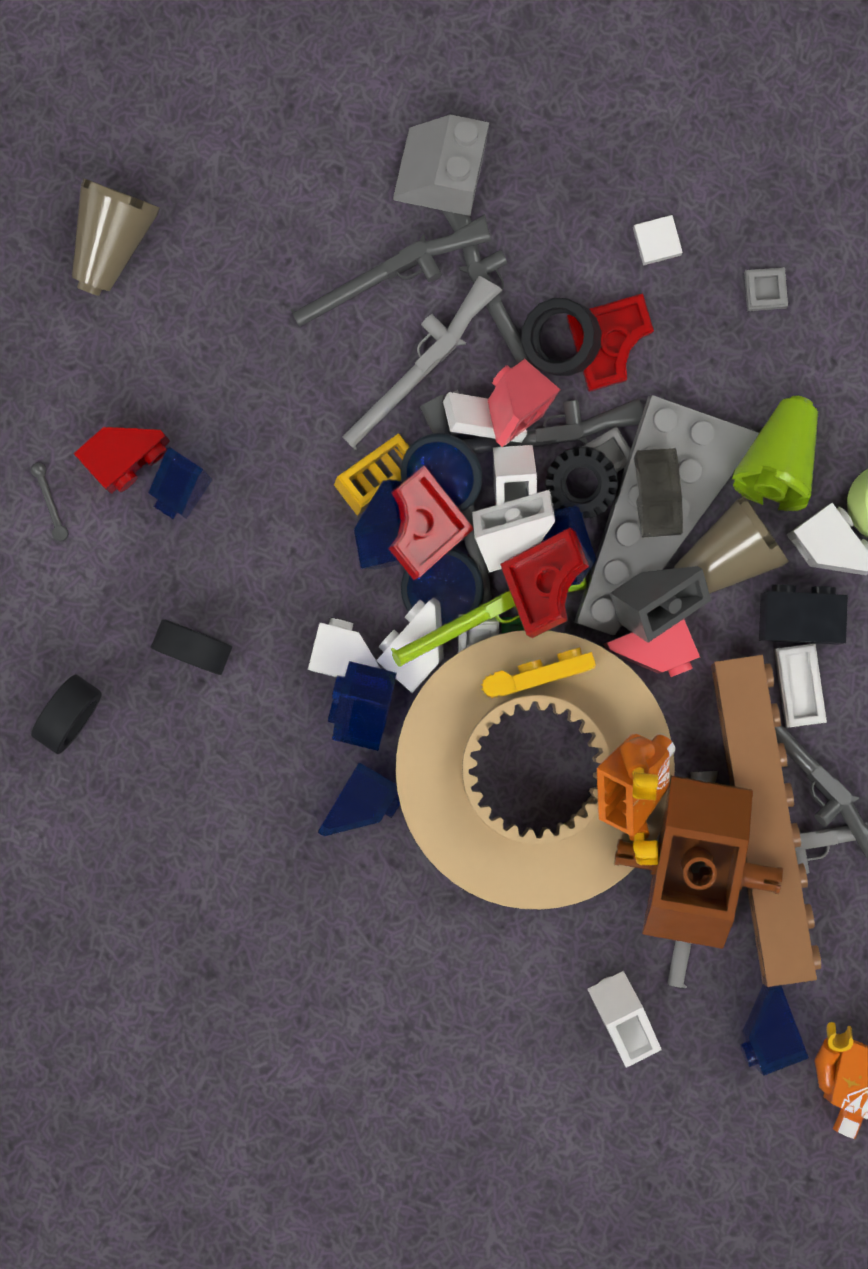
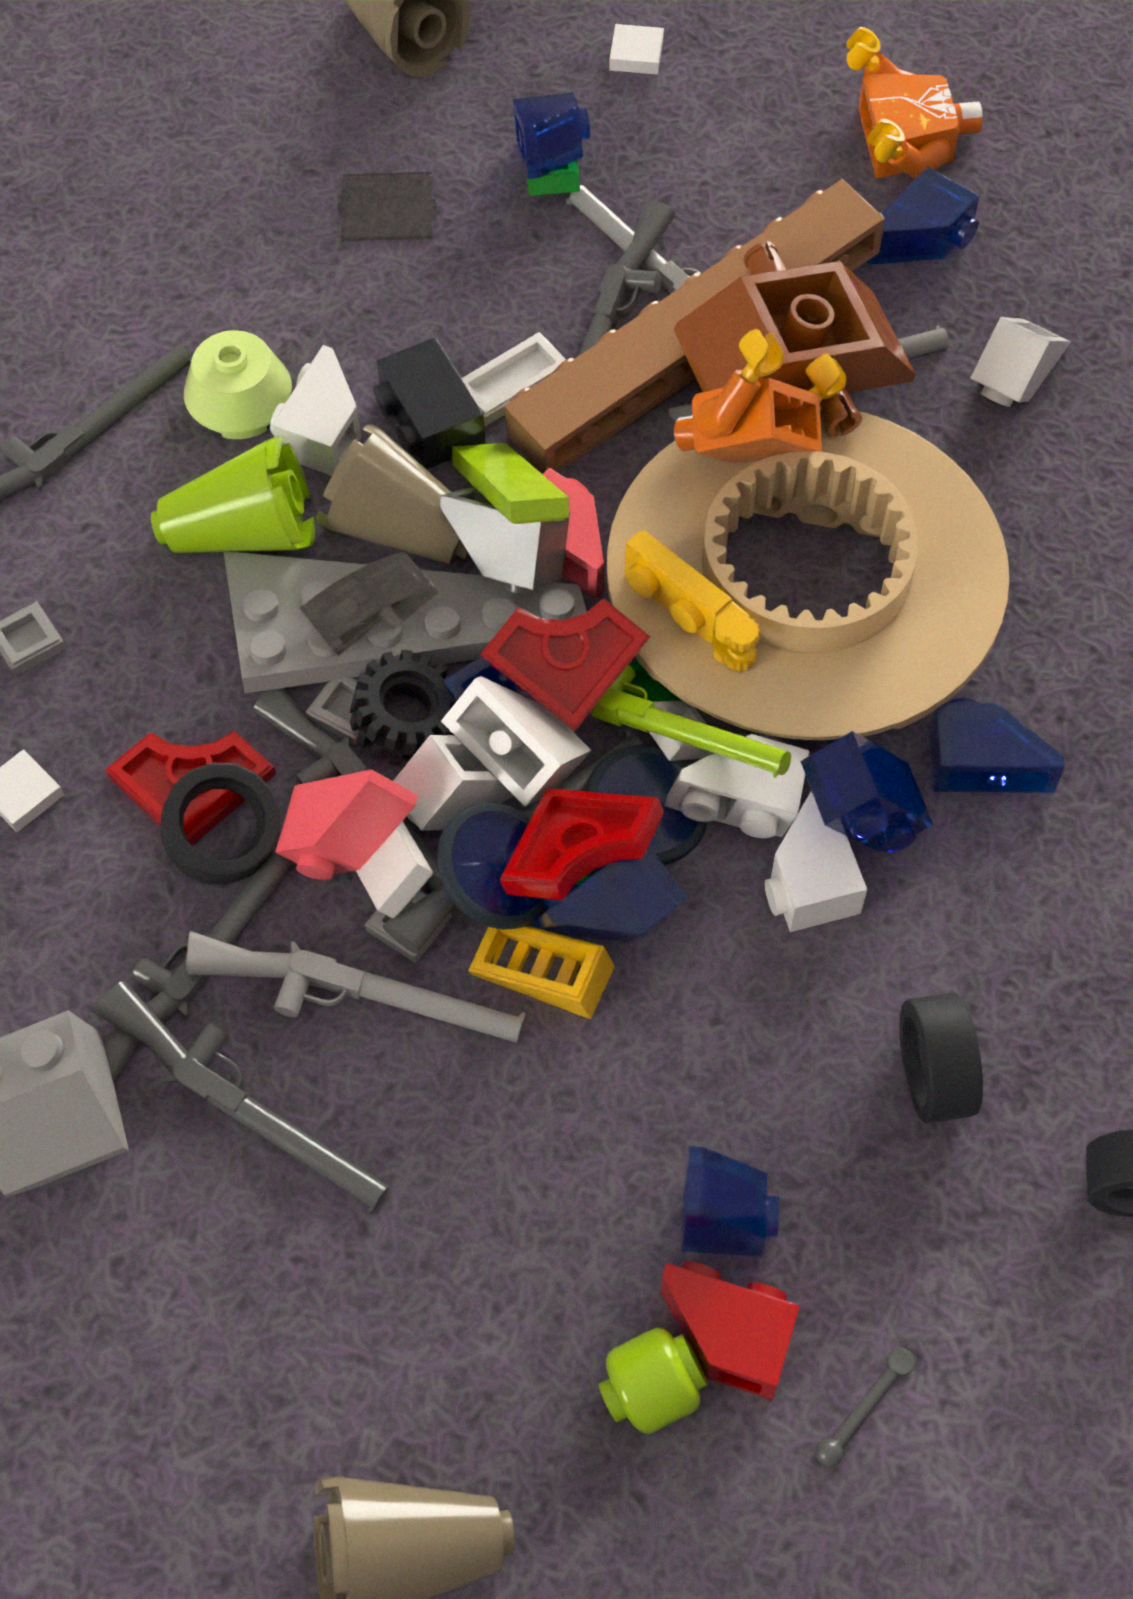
camera: 115 degrees left, 25 degrees down
(117, 399) = (653, 1380): none -> lime head
(693, 619) = (510, 483): none -> lime tile

